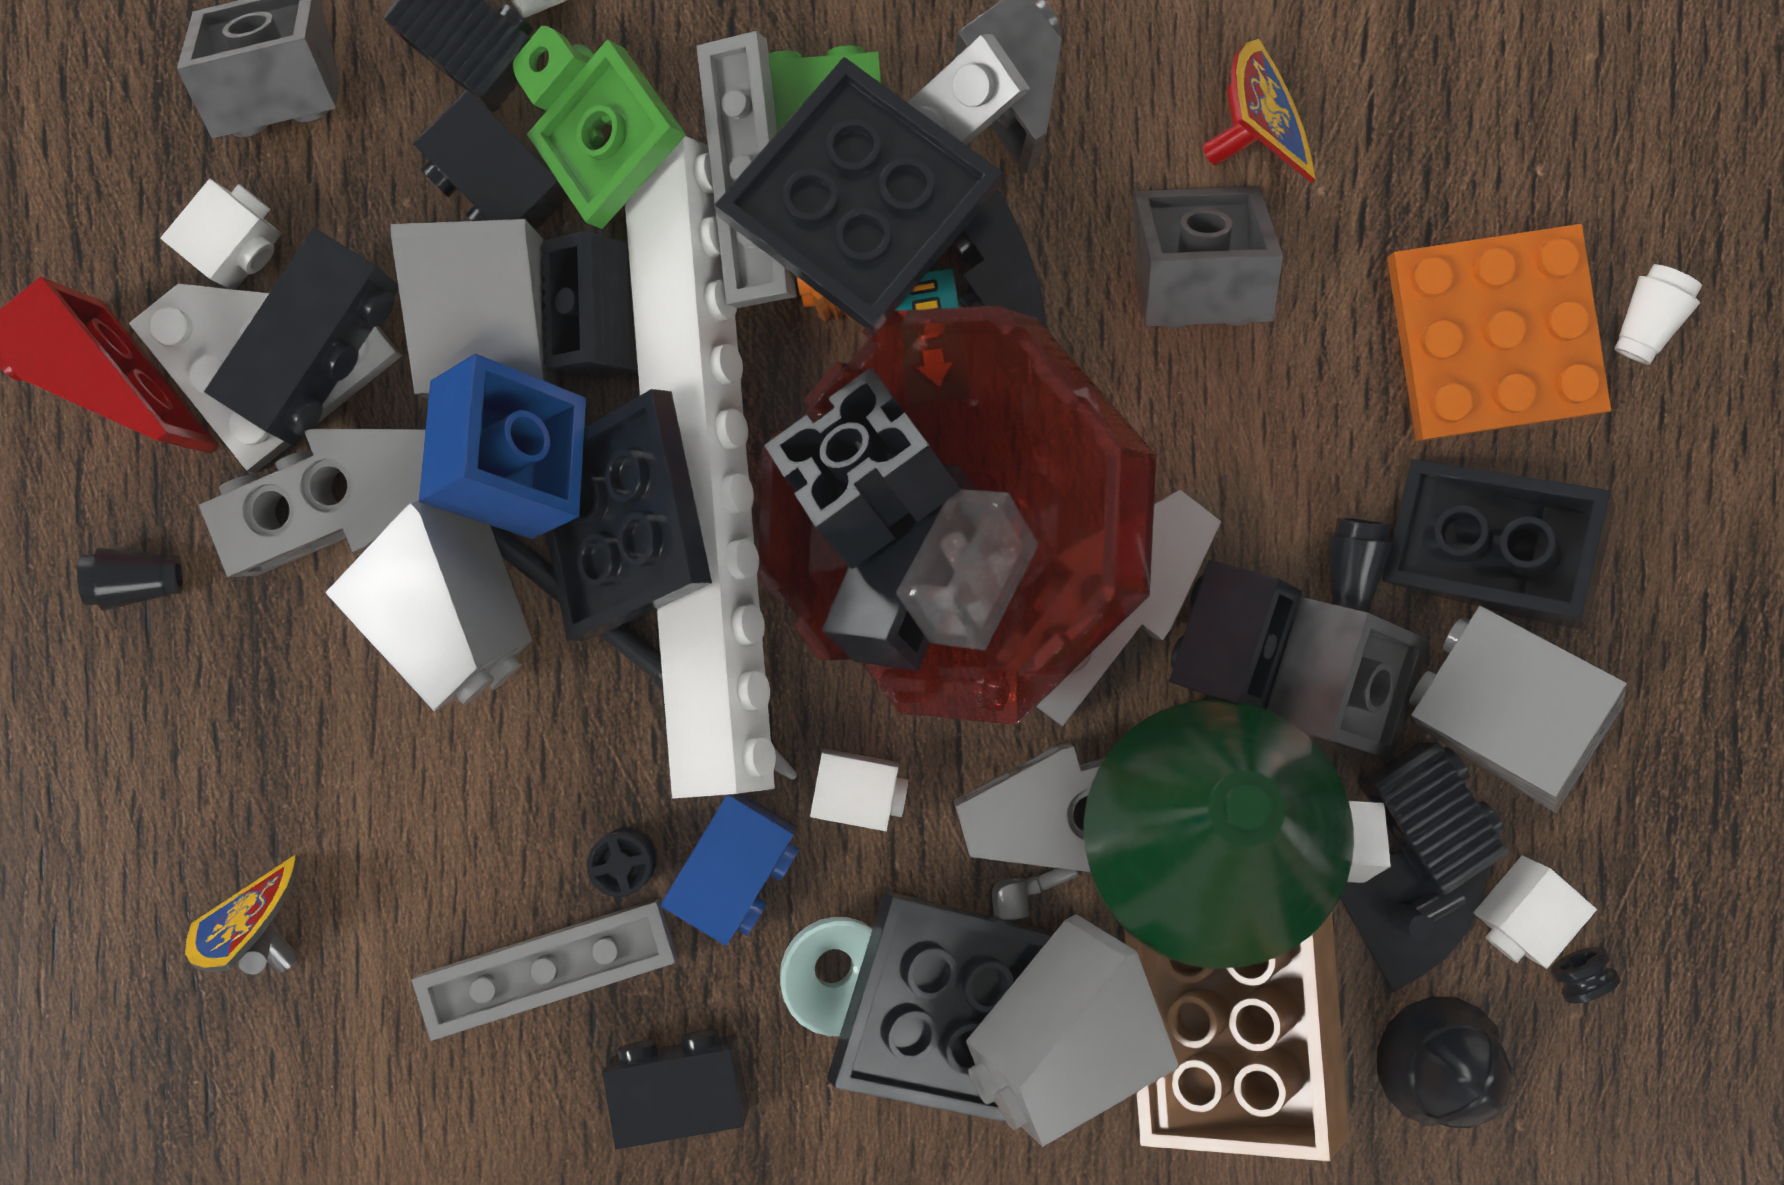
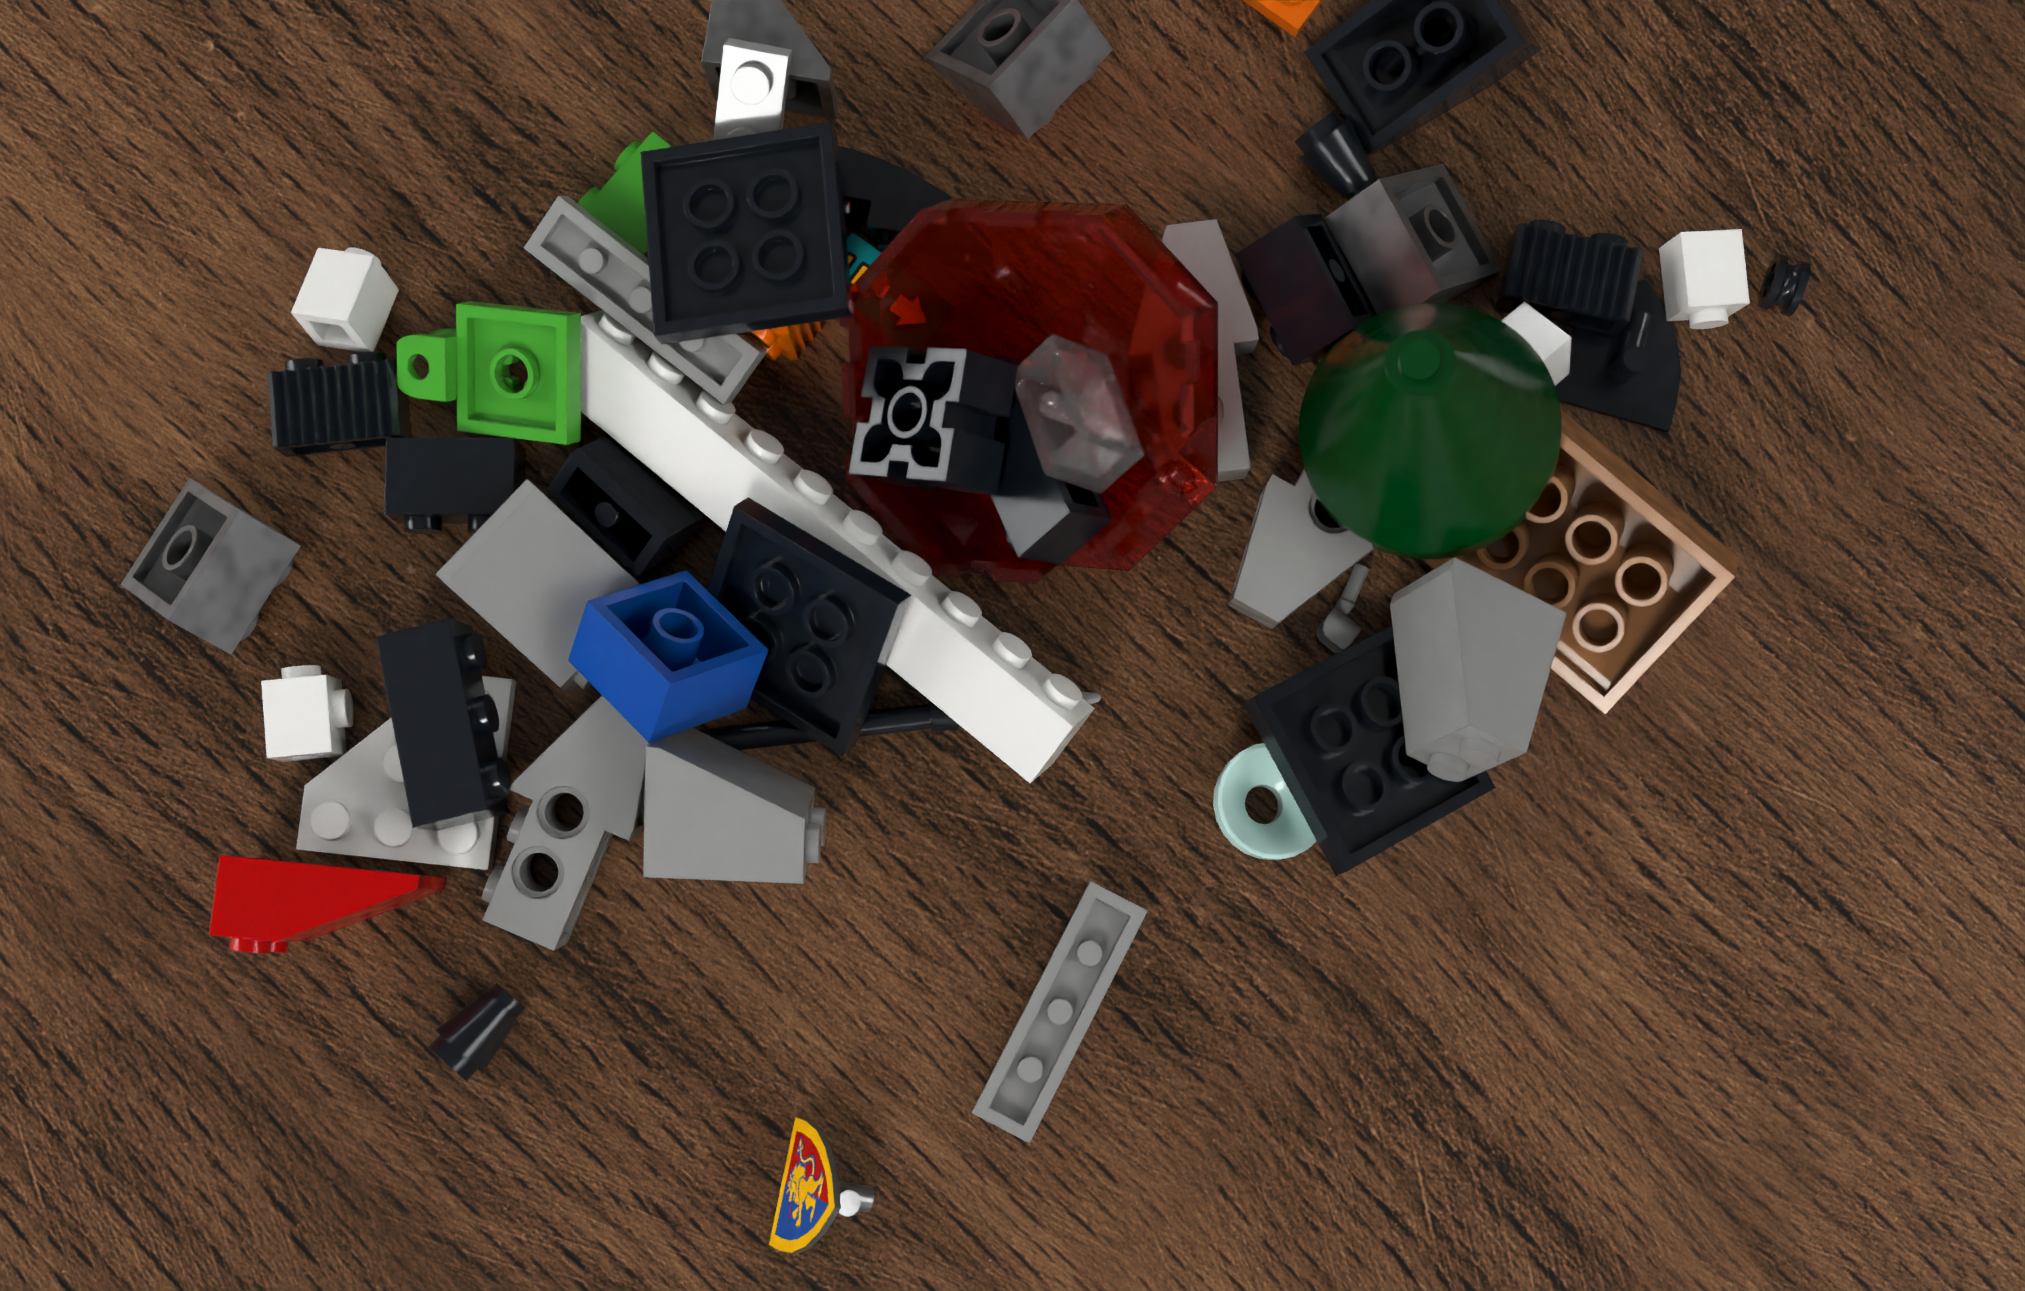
camera: 55 degrees left, 5 degrees down
(610, 866) = (1043, 872): black wheel -> none
(675, 1089) = (1238, 1000): black brick -> none
(730, 867) = (1120, 802): blue brick -> none
(858, 790) = (1153, 658): white brick -> none
(1444, 1064) = (1752, 445): black helmet -> none
(1517, 706) = (1549, 146): light grey slope -> none

